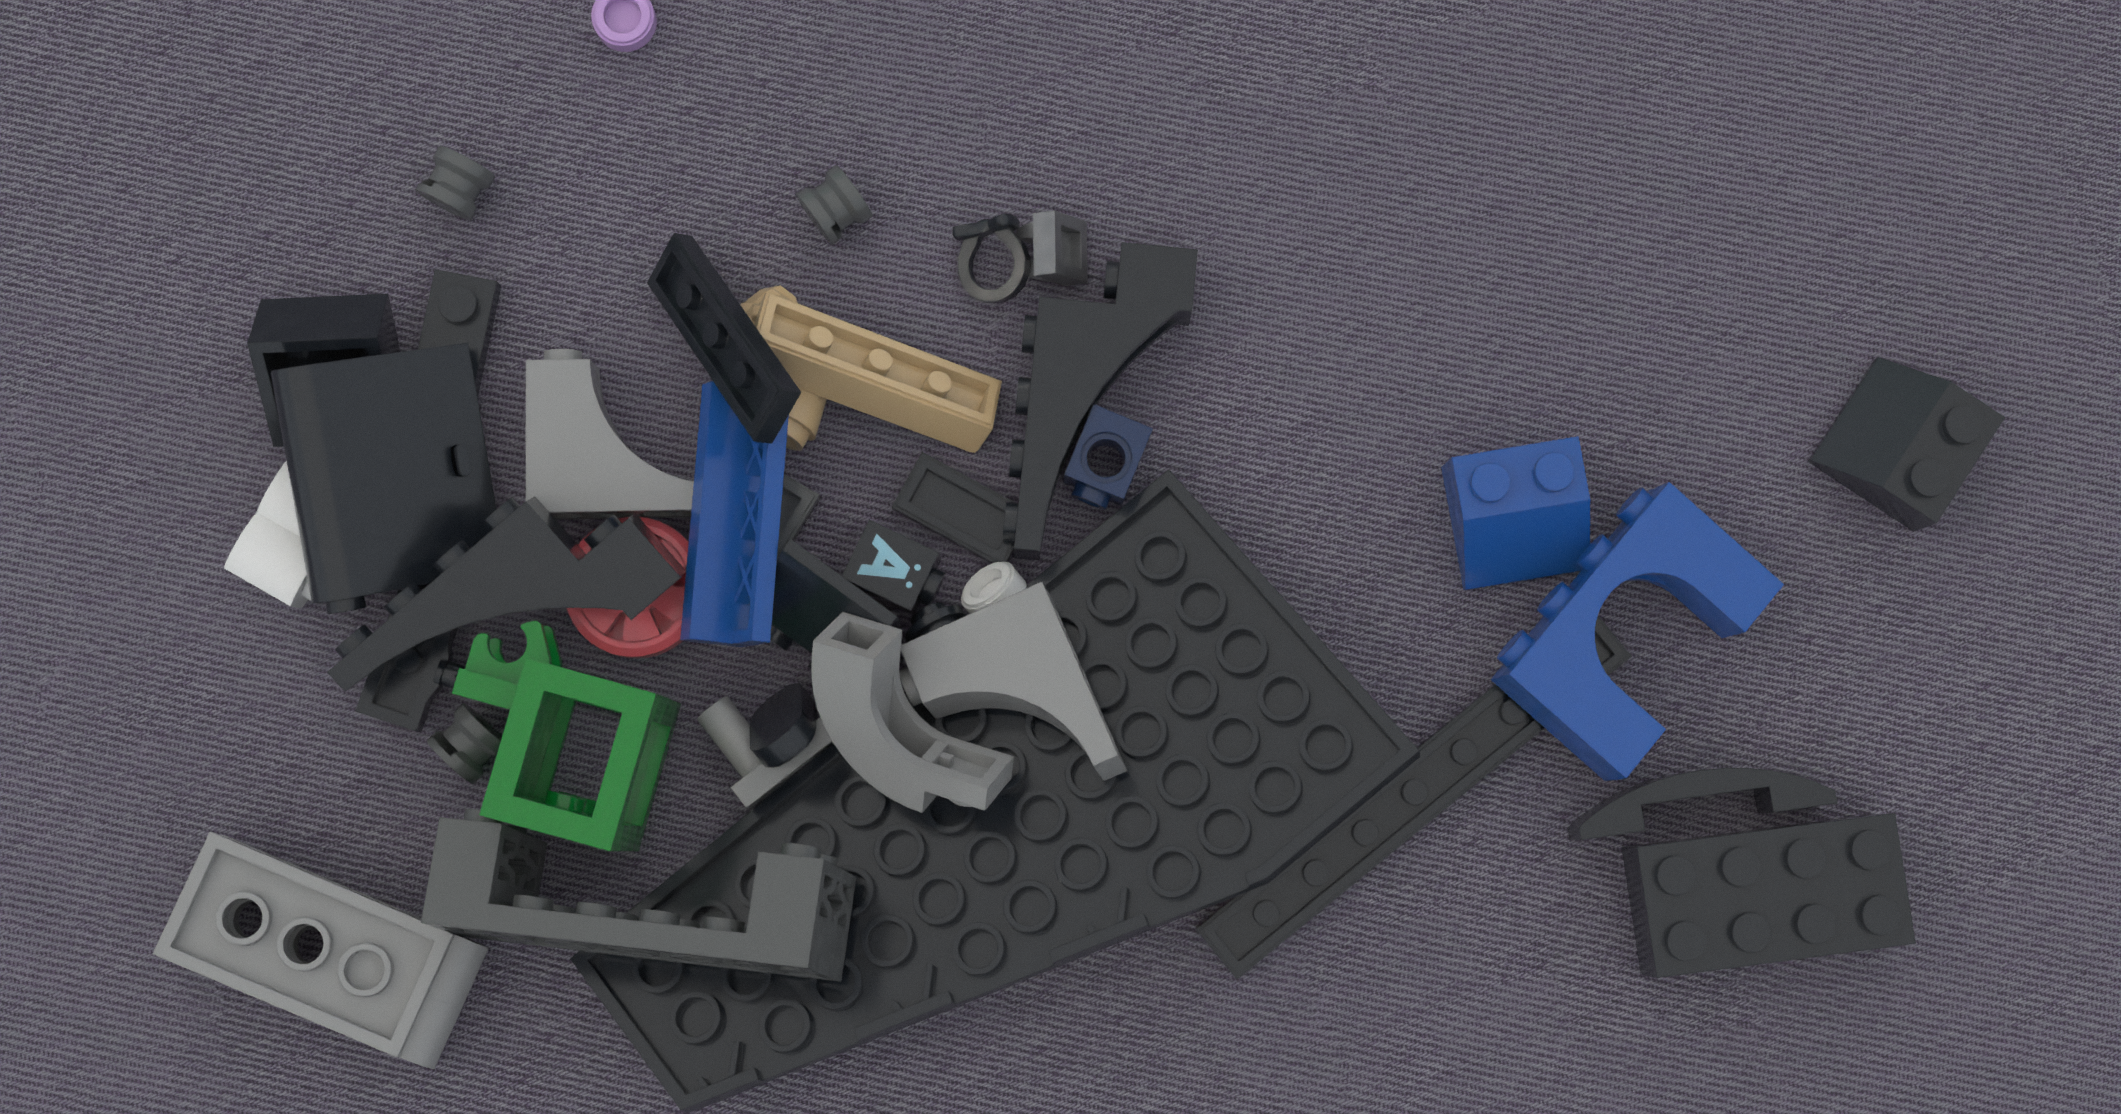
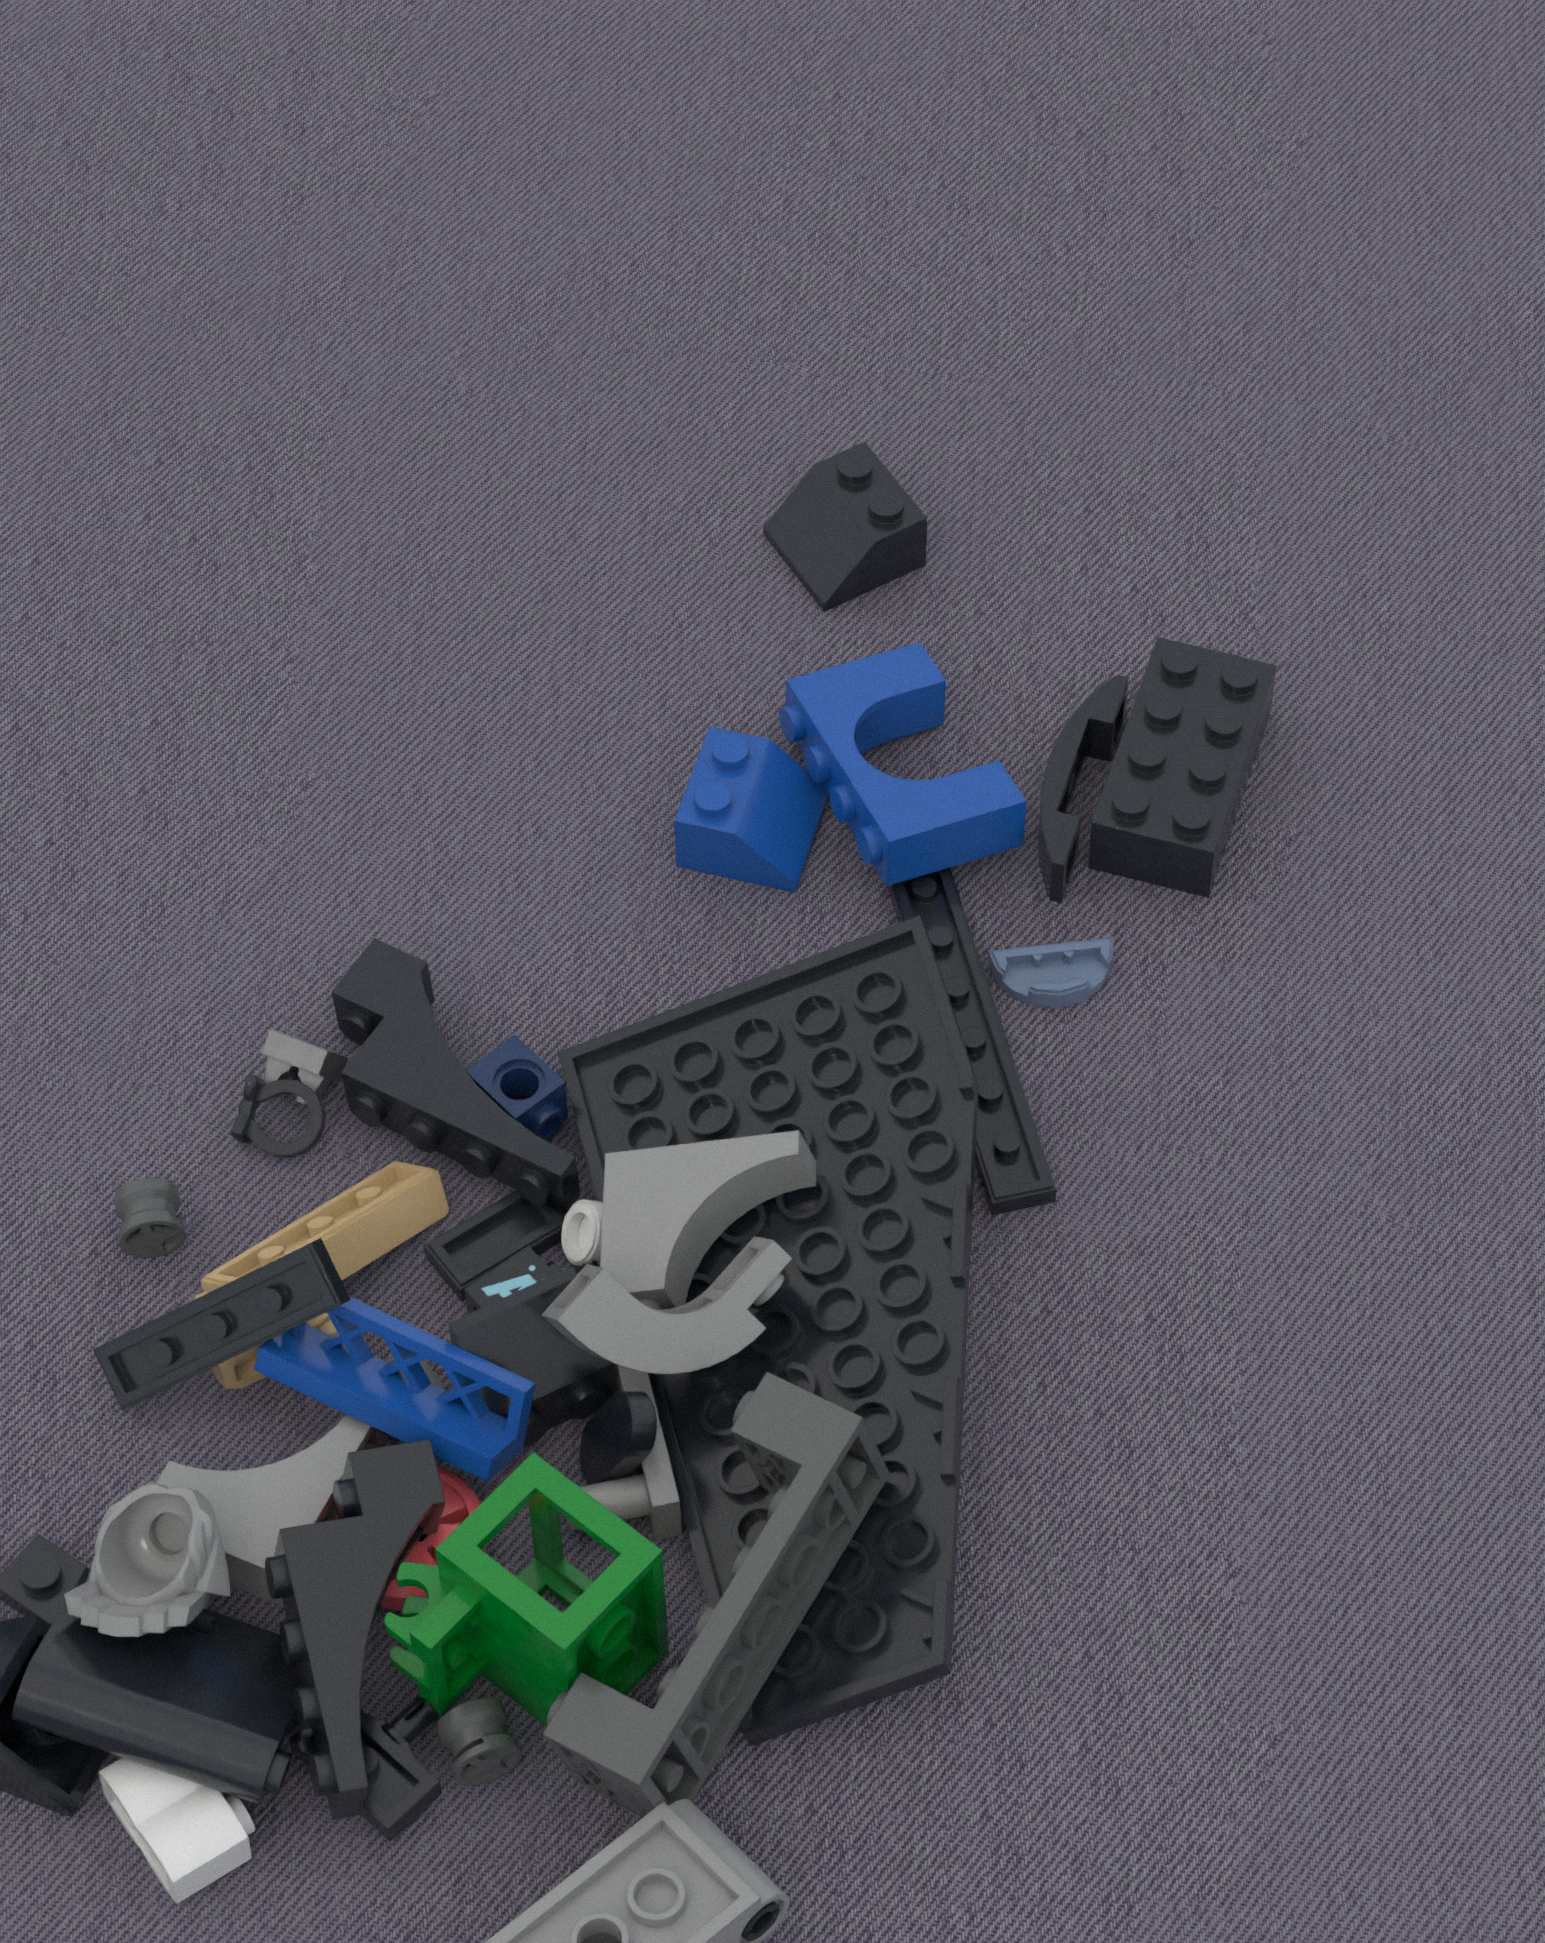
camera: 60 degrees left, 30 degrees down
(456, 410) = (152, 1564): none -> light grey hair
(1480, 871) = (1053, 973): none -> sand blue tile

